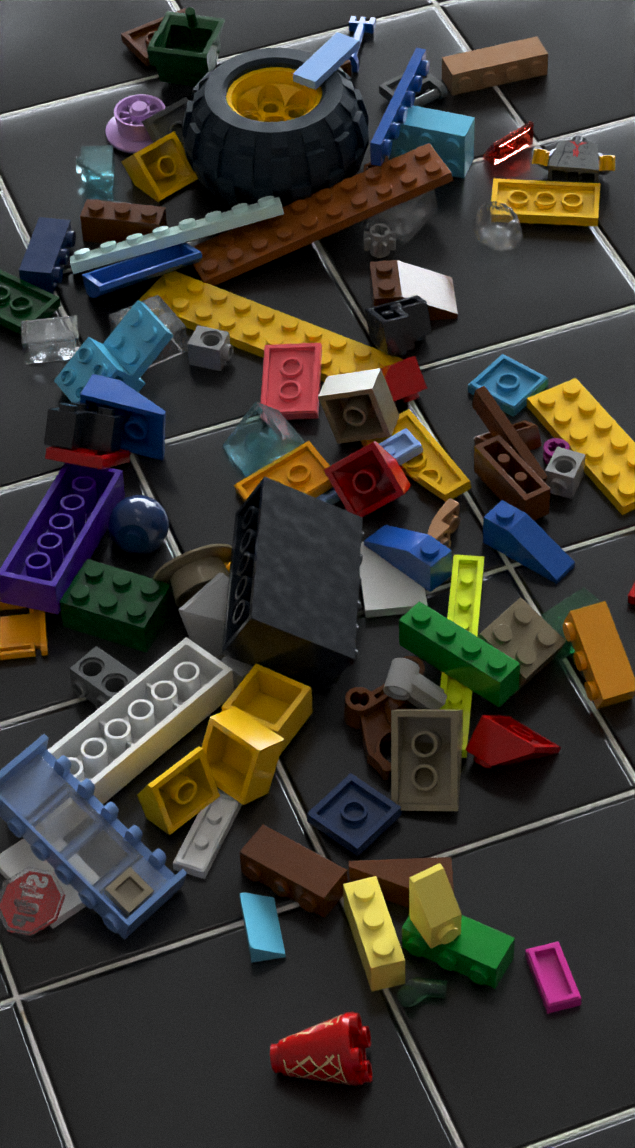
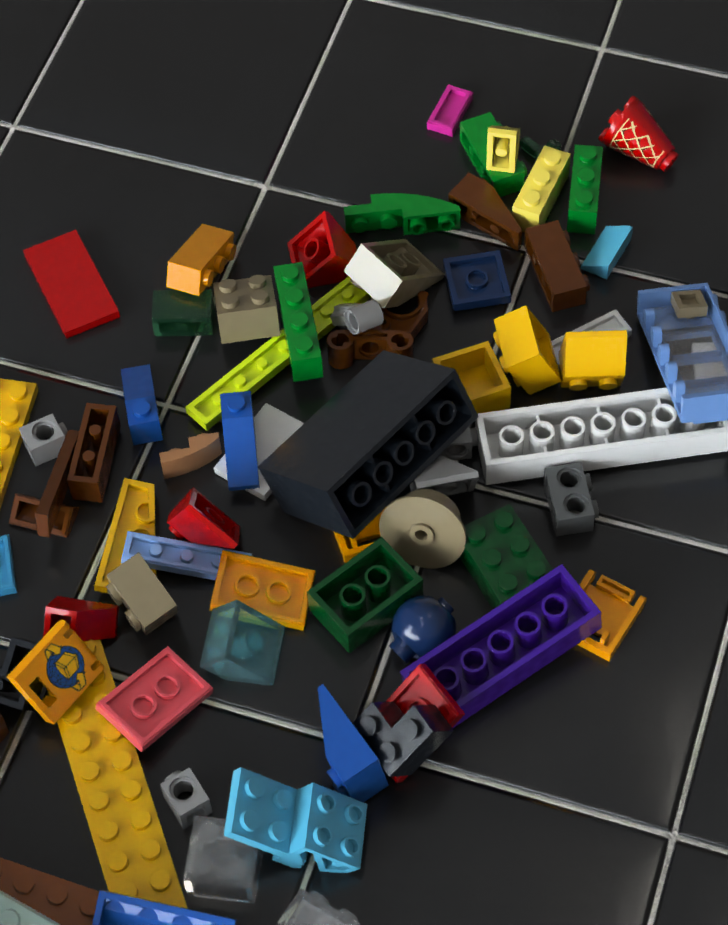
camera: 140 degrees left, 10 degrees up
(201, 511) = (364, 594): none -> dark green brick
(333, 962) = (584, 189): none -> green brick
(362, 328) = (62, 666): none -> light orange container
(475, 833) = (411, 211): none -> green slope
(550, 446) = (19, 464): magenta bush -> none

